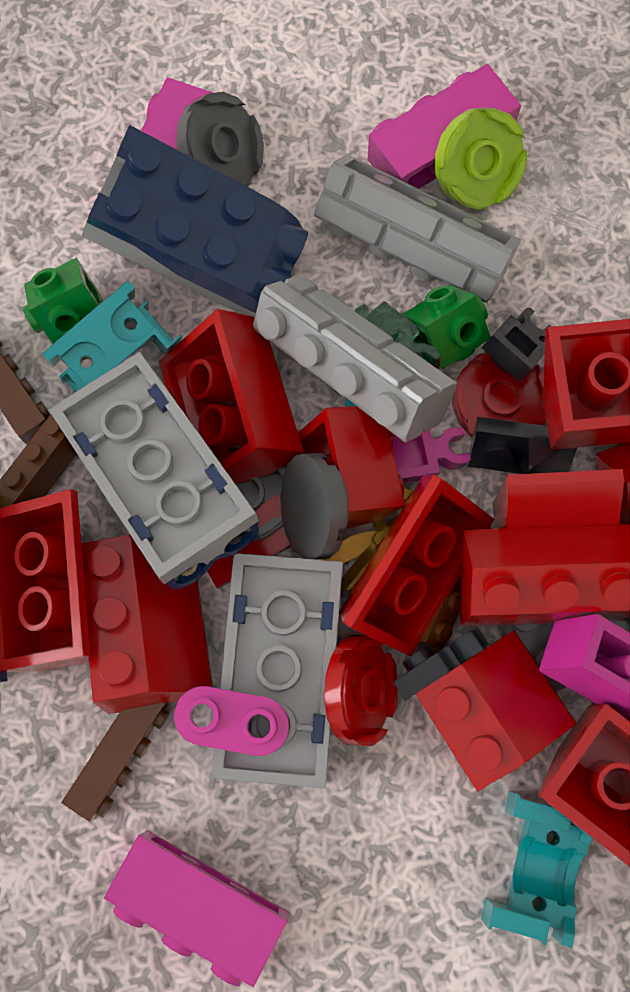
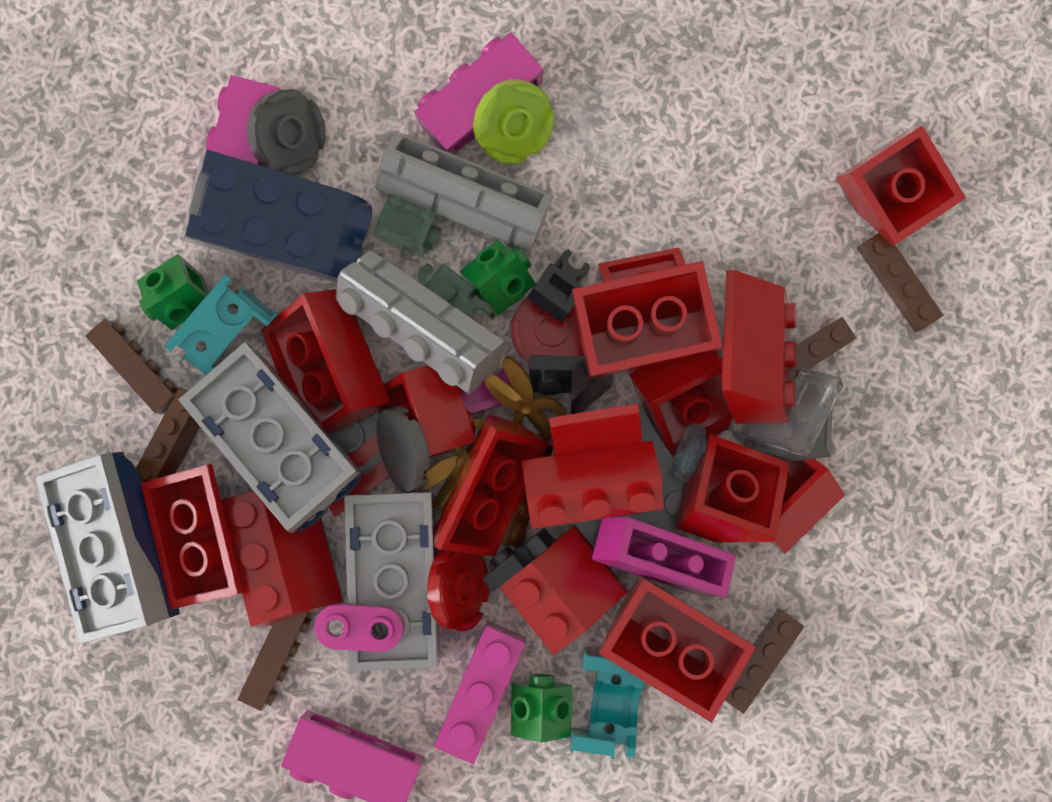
camera: 10 degrees left, 10 degrees up
(345, 262) = (407, 227): none -> clear green brick
(374, 834) = (480, 692): none -> dark pink brick
(452, 865) = (541, 709): none -> green brick
(461, 463) = (521, 399): none -> pearl gold piece

